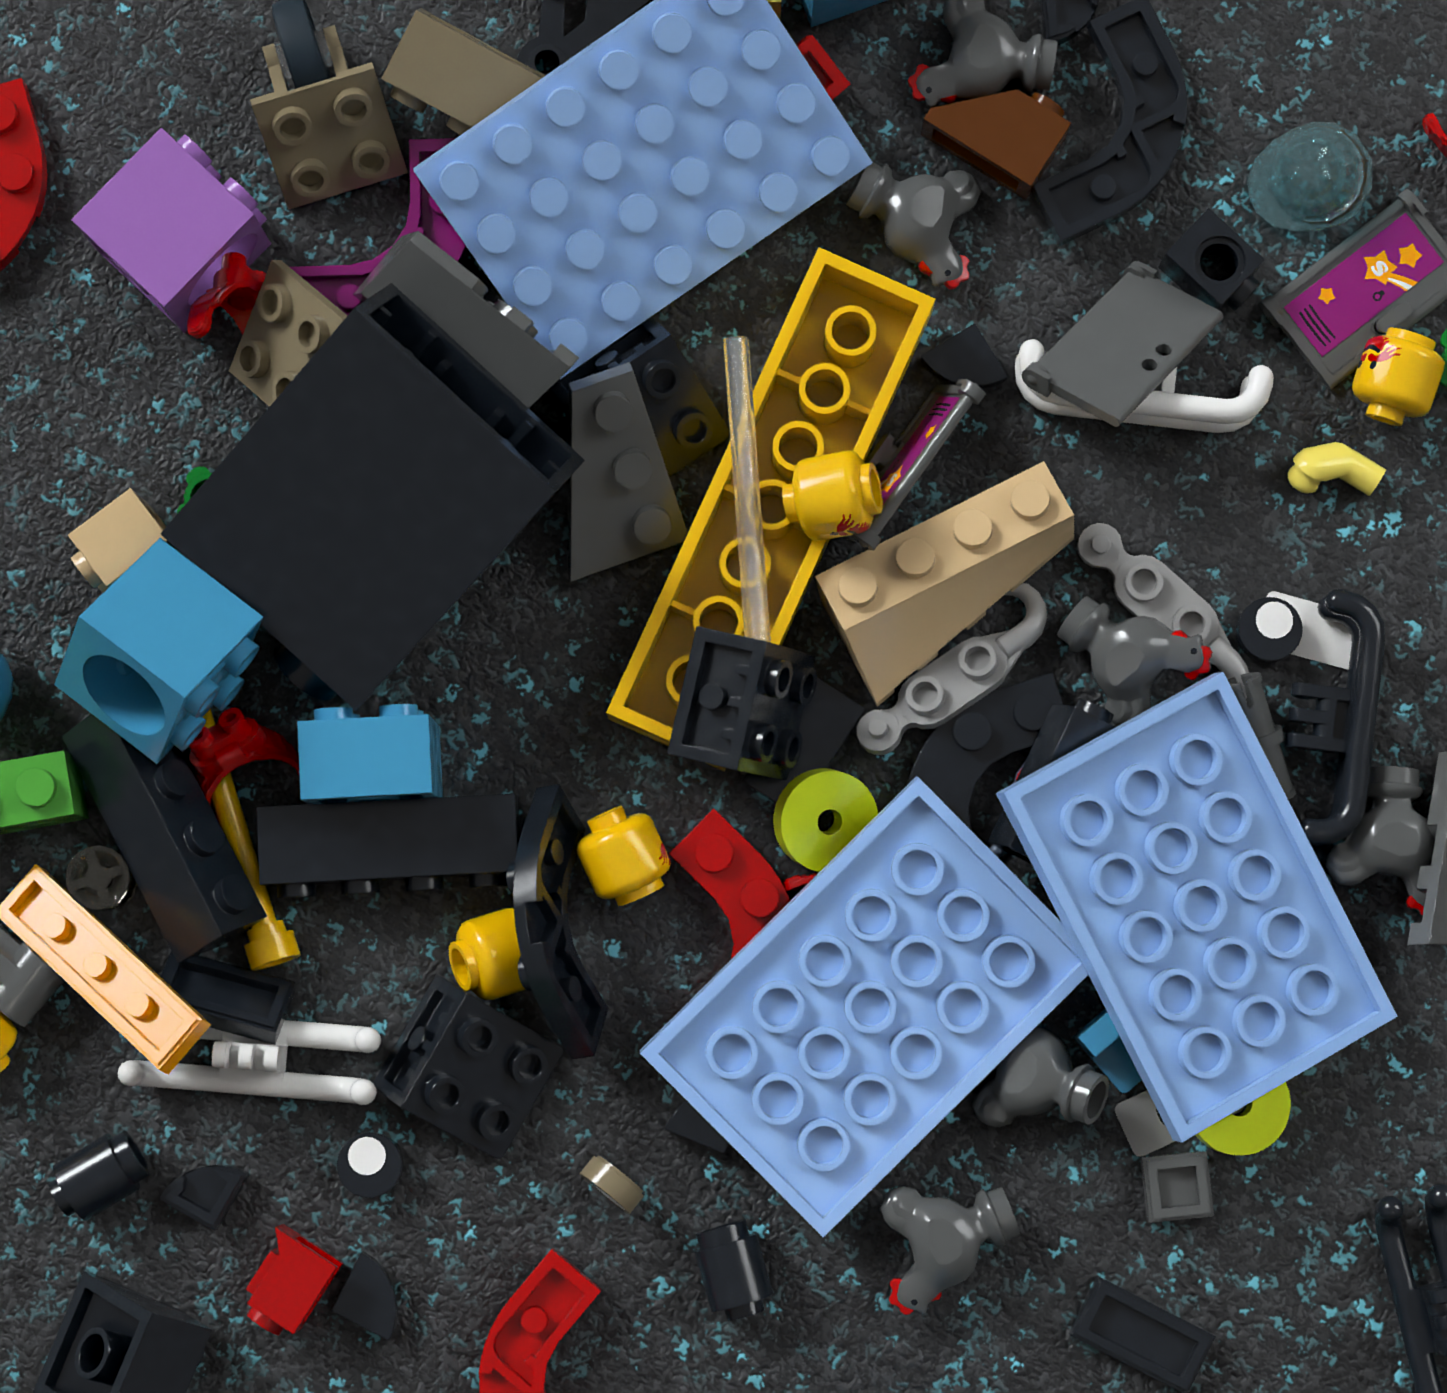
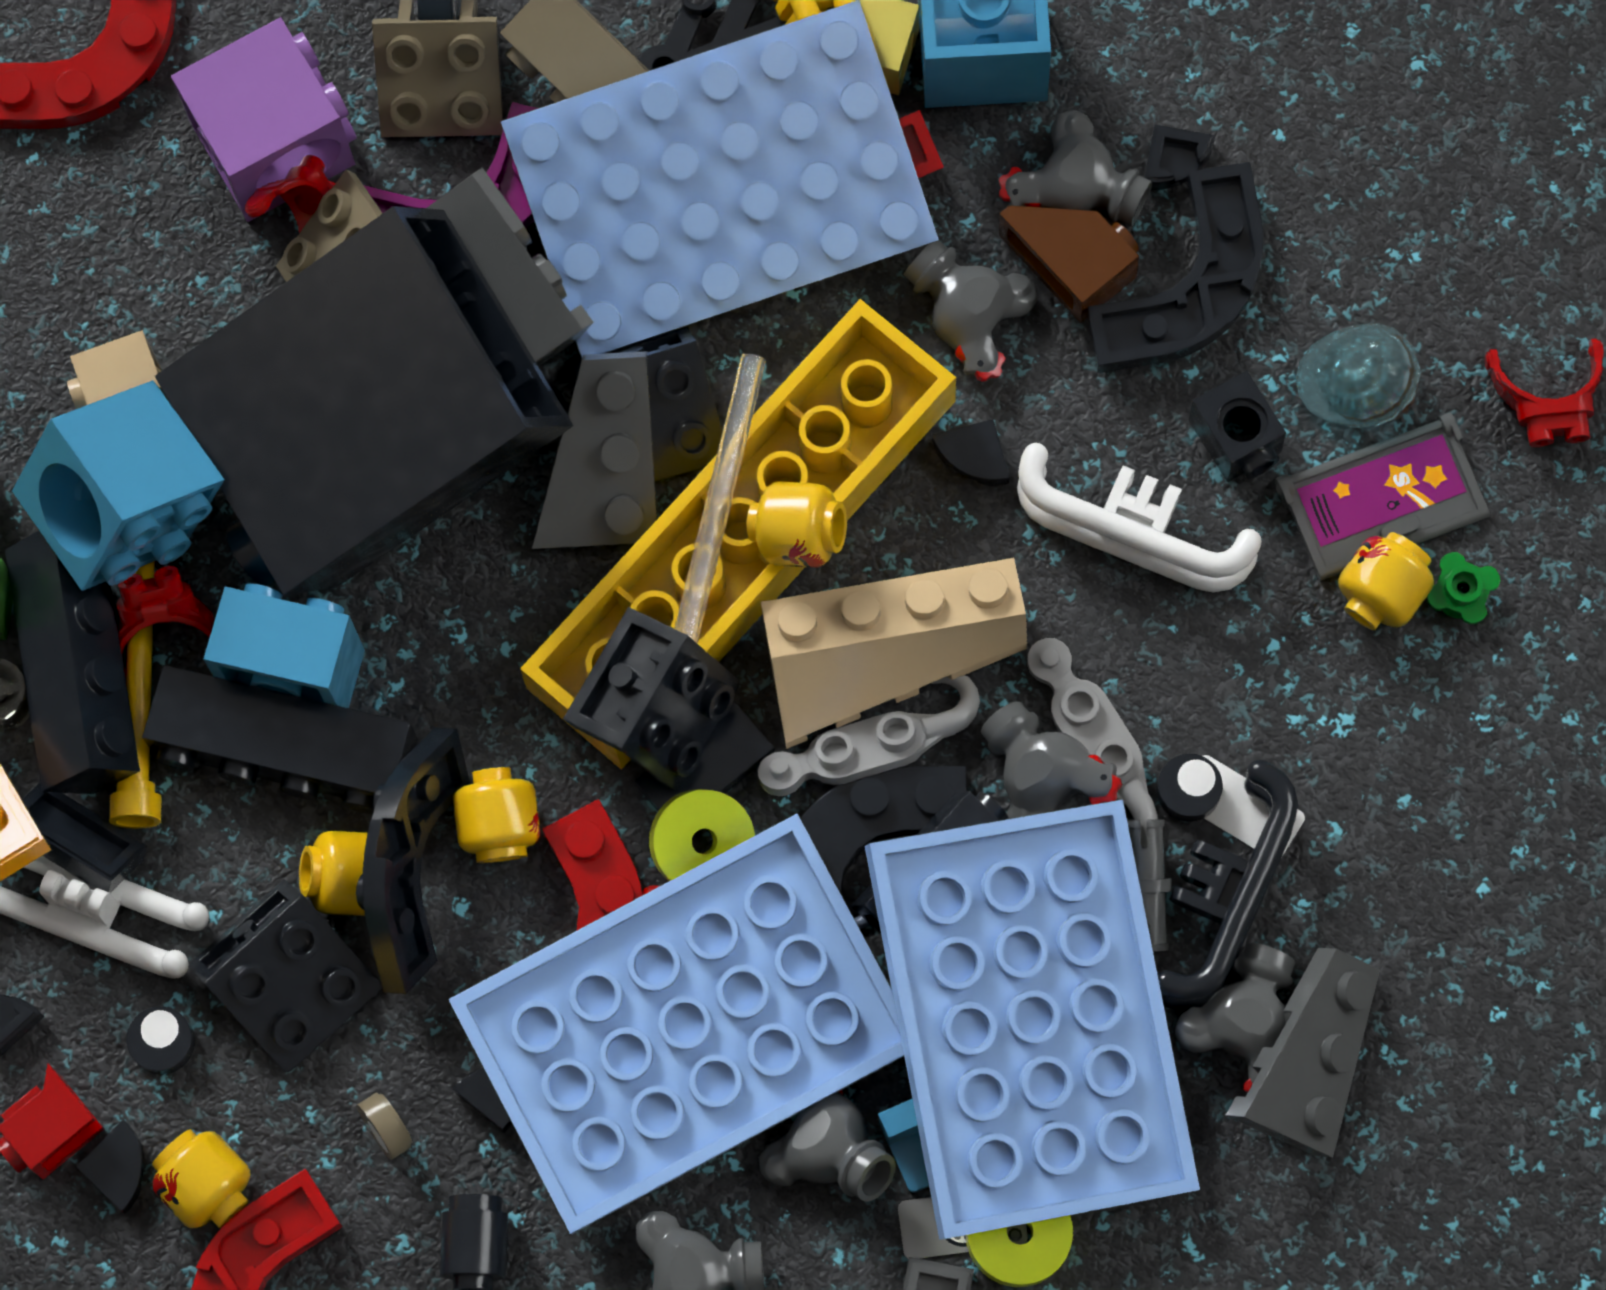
camera: 20 degrees right, 10 degrees down
(456, 1290) = (201, 1179): none -> yellow head
(904, 461) = (877, 524): dark grey door -> none
(1113, 351) = (1122, 473): dark grey door -> none
(1333, 462) = (1302, 647): light yellow arm -> none

